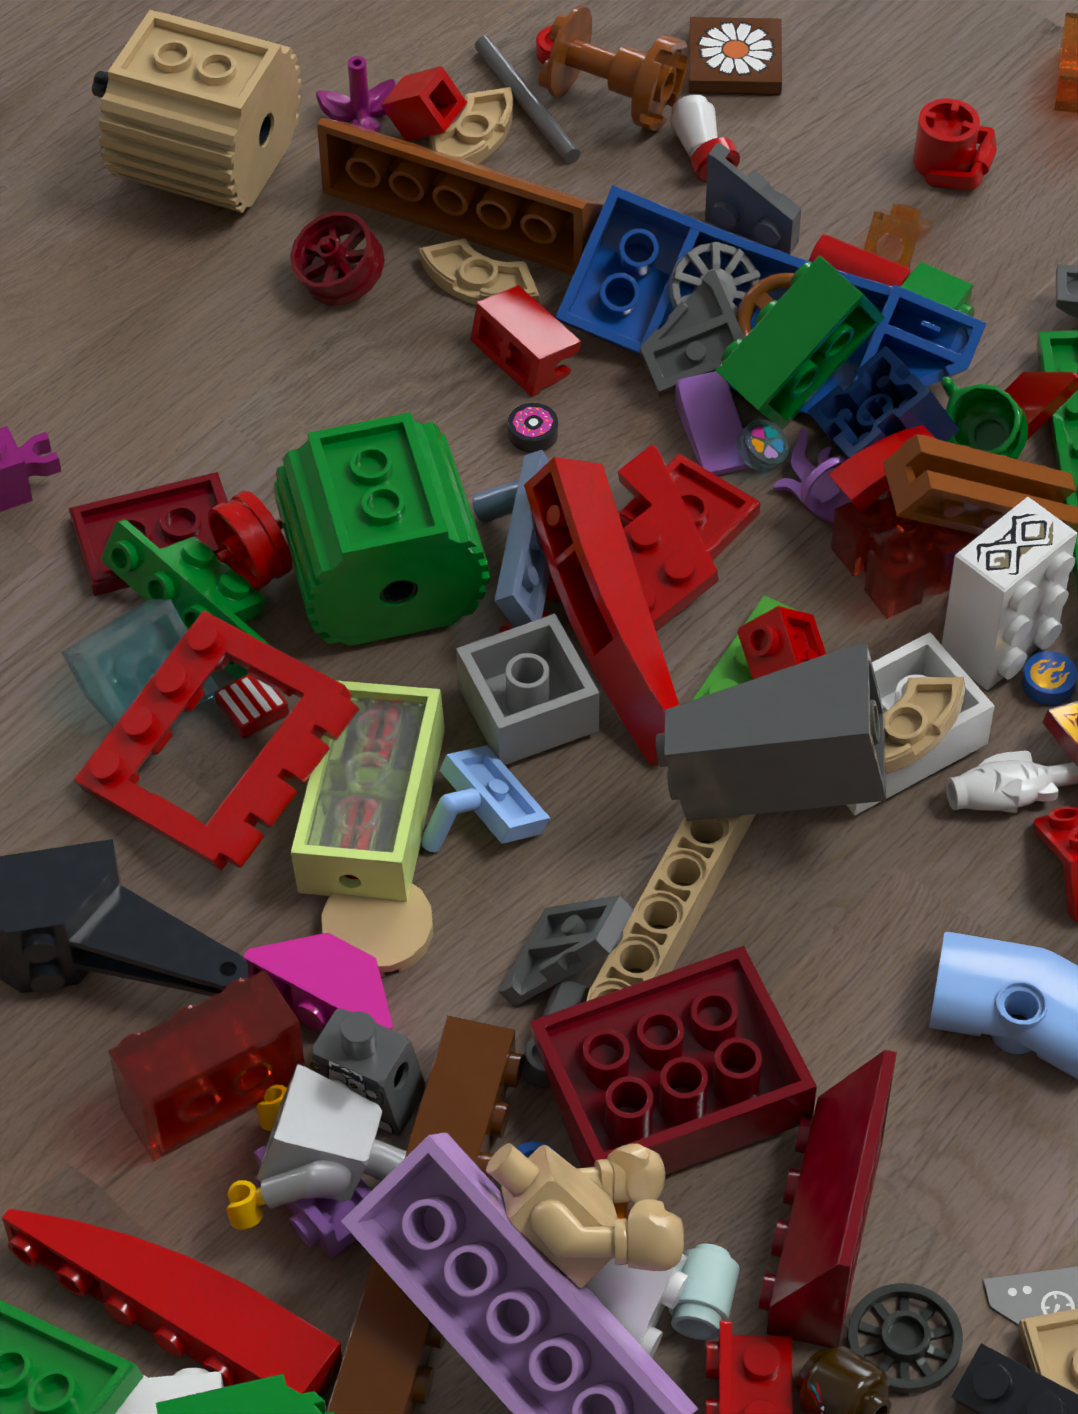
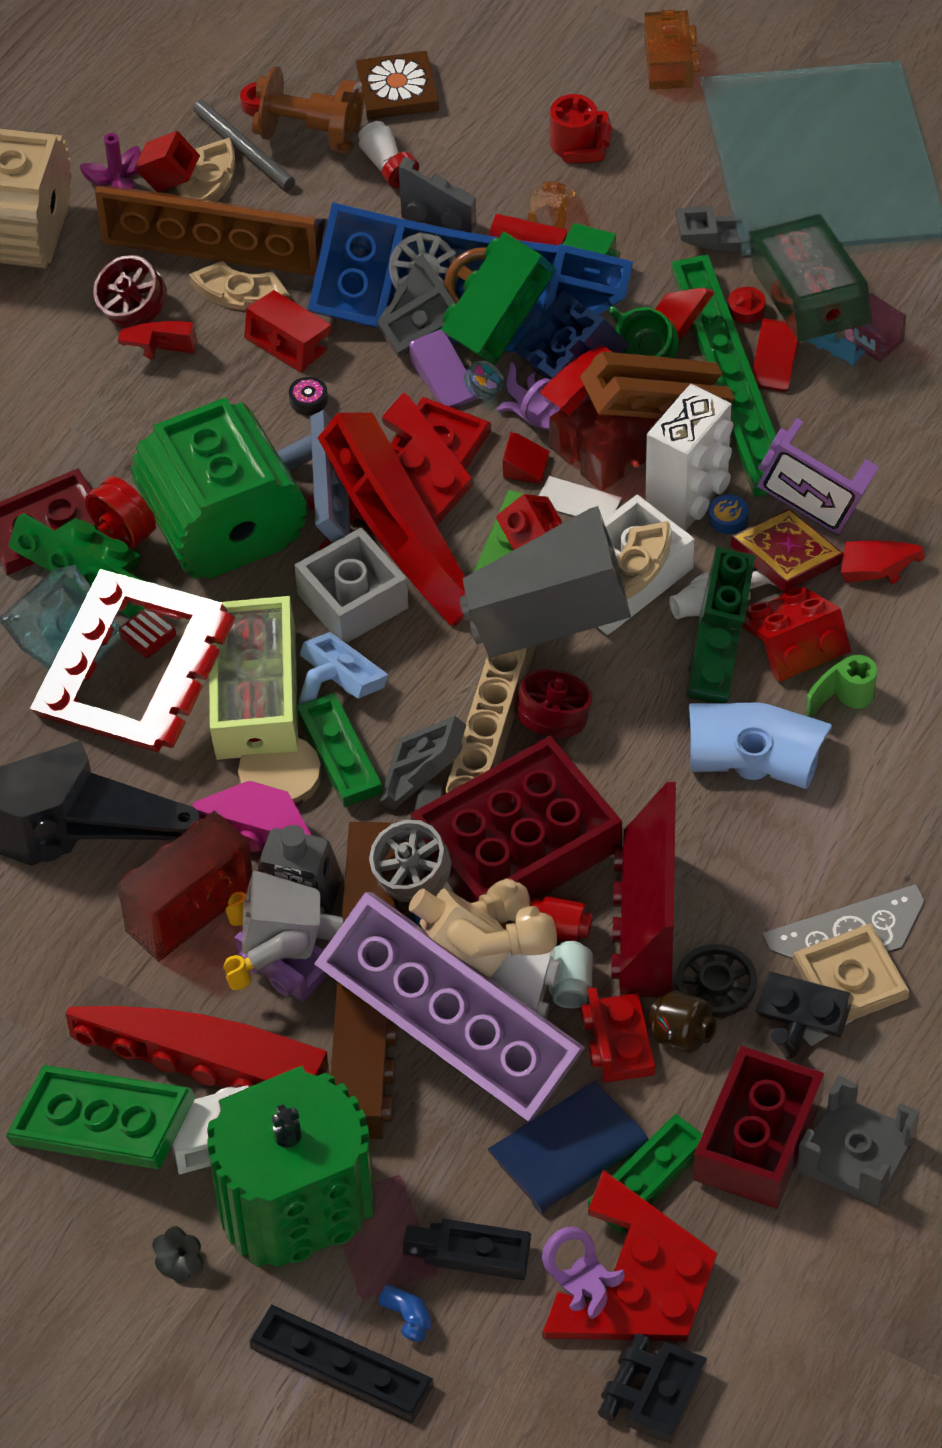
camera: 10 degrees left, 0 degrees up
(365, 319) = (162, 335): none -> red slope
(462, 910) = (339, 750): none -> green plate
(513, 1090) = (409, 860): none -> light grey wheel
(707, 1208) = (569, 917): none -> red brick
(754, 897) = (553, 703): none -> dark red wheel
(793, 558) = (524, 459): none -> red slope
(855, 624) = (575, 498): none -> white sticker
(1007, 832) = (720, 626): none -> dark green slope

